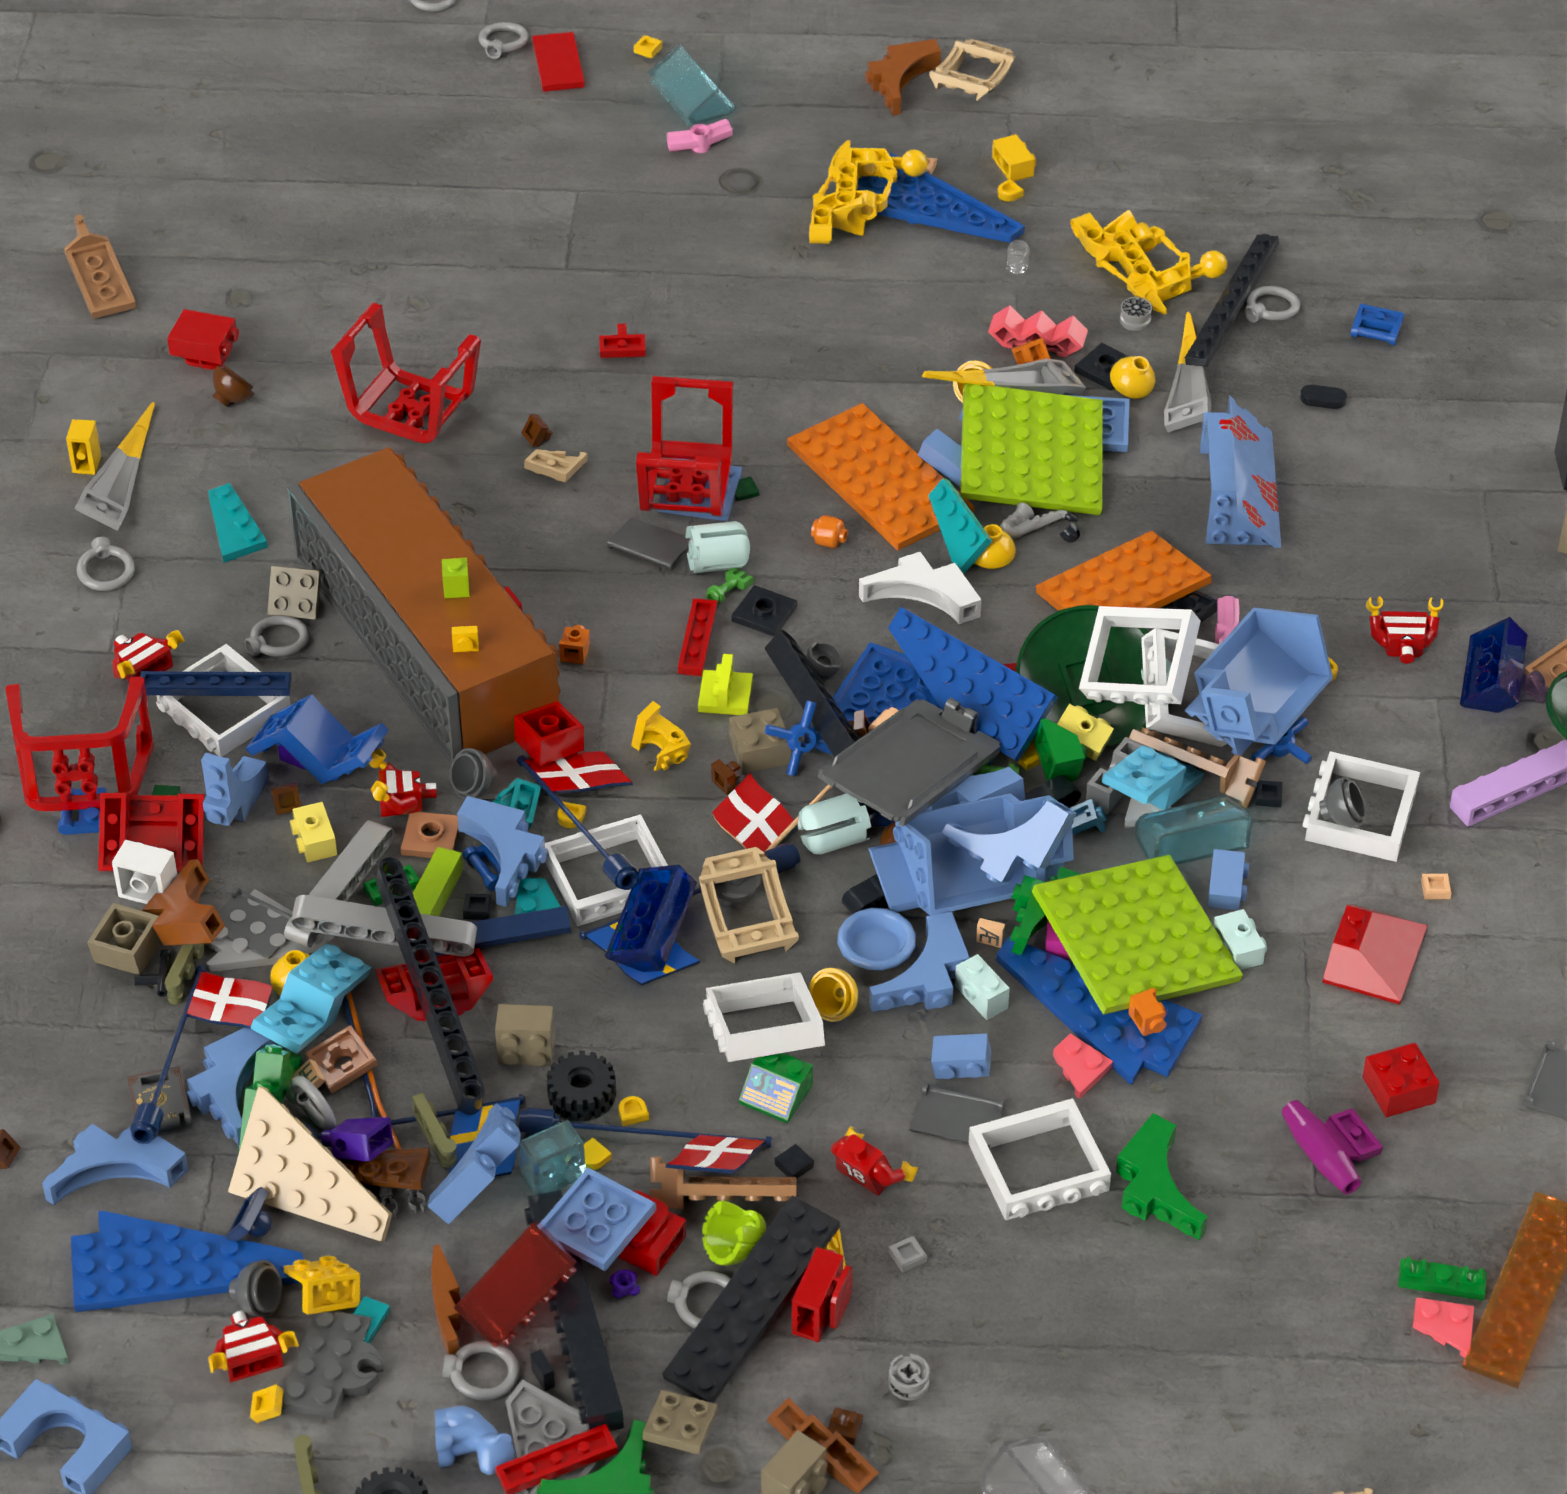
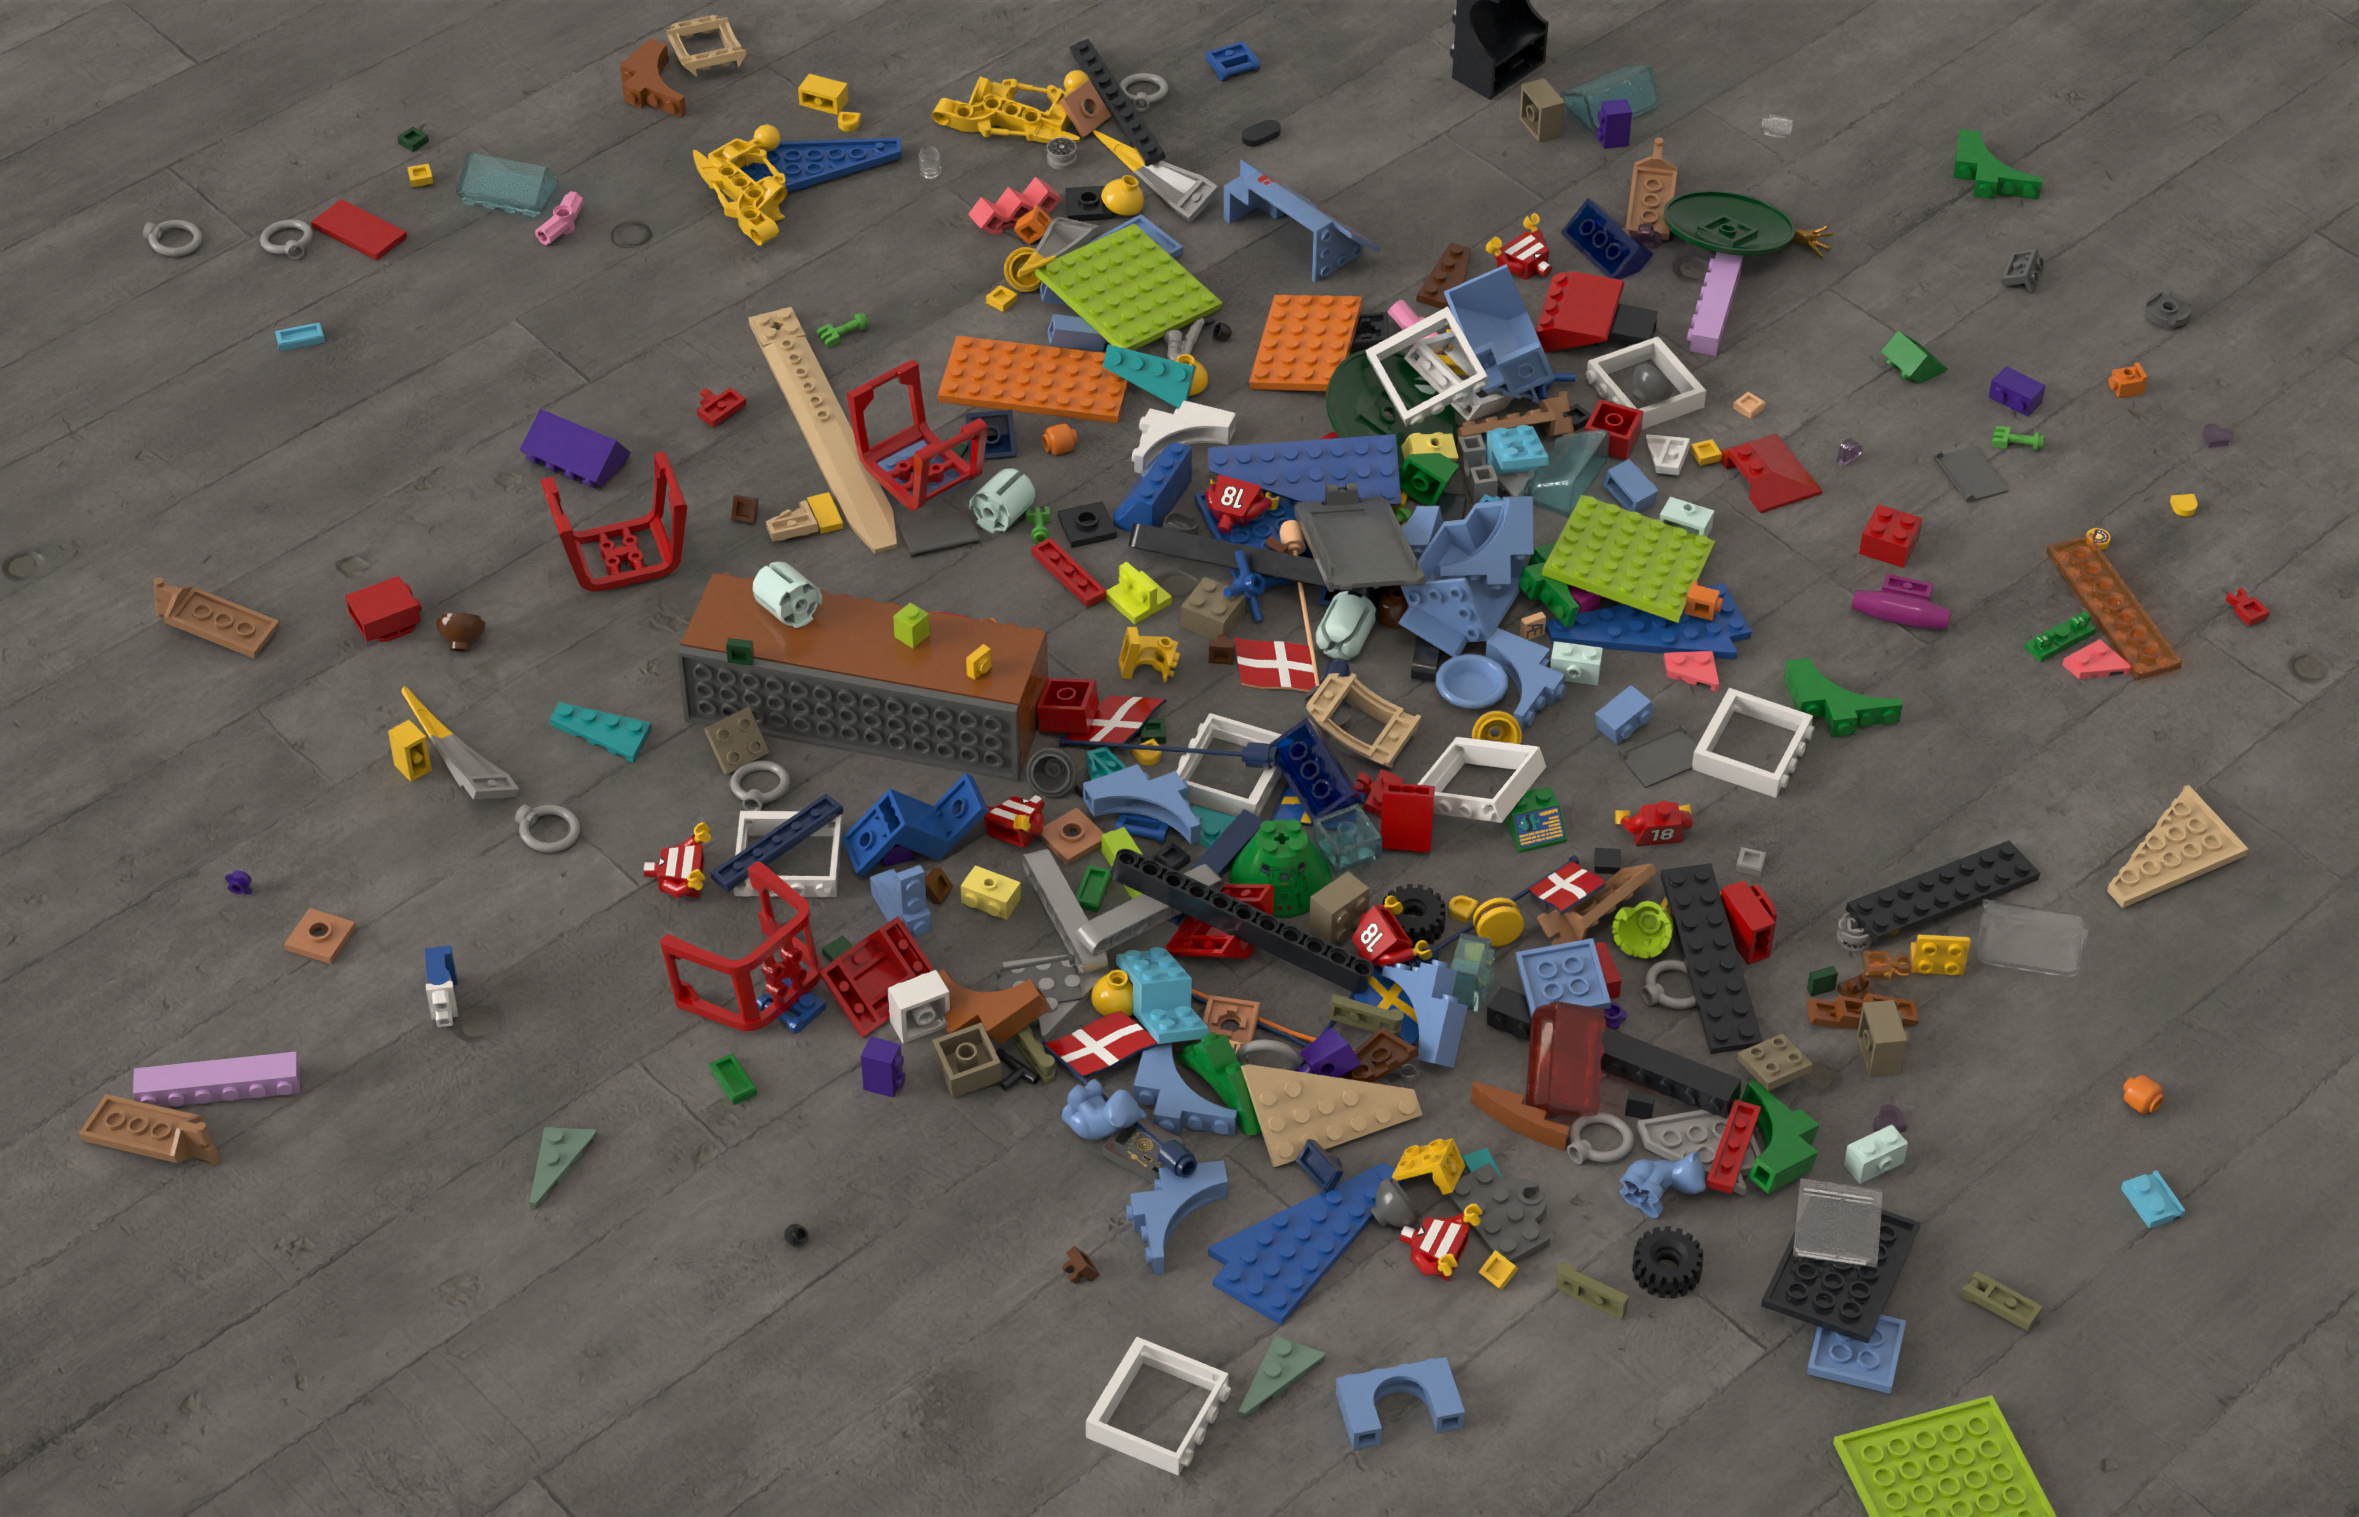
camera: 45 degrees left, 0 degrees up
(63, 897) = (882, 1067): none -> dark purple brick
(149, 1044) = (1094, 1117): none -> medium blue animal
(318, 514) = (740, 651): none -> dark green tile
(394, 491) = (786, 594): none -> light aqua cylinder
(419, 113) = (299, 336): none -> medium azure tile
(477, 307) = (573, 450): none -> dark purple windscreen
(521, 1079) = (1383, 938): none -> red torso
(536, 969) = (1288, 860): none -> green cone
(590, 472) = (825, 513): none -> yellow tile
(596, 801) = (1155, 730): none -> dark green tile
(610, 987) = (1347, 838): none -> clear light blue brick
(630, 1139) = (1499, 921): none -> yellow head
(669, 1003) = (1407, 817): none -> red brick
(681, 18) = (413, 139): none -> dark green tile
(693, 974) = (1375, 789): none -> red plate
(711, 359) = (825, 428): none -> tan wedge
(776, 342) = (831, 335): none -> bright green hinge
(782, 493) = (1000, 433): none -> dark blue slope
(822, 1393) = (1822, 981): none -> dark green tile
(842, 618) = (1156, 489): none -> blue windscreen
(880, 668) = (1237, 502): none -> red torso
(892, 1420) = (1880, 964): none -> clear orange plate
(938, 397) = (1001, 298): none -> yellow tile
(945, 1452) = (1939, 954): none -> yellow bracket
(1025, 1403) = (1942, 891): none -> black plate
(1182, 298) = (1074, 107): none -> nougat piece
(1278, 822) = (1621, 422): none -> red brick
(1303, 876) = (1668, 453): none -> white wing
(1328, 604) = (1447, 273): none -> reddish brown wing
(1337, 897) = (1706, 452): none -> yellow plate
(1377, 703) = (1578, 310): none -> red slope
(1412, 746) = (1633, 324): none -> black panel
(1467, 984) = (1848, 451): none -> clear purple tile

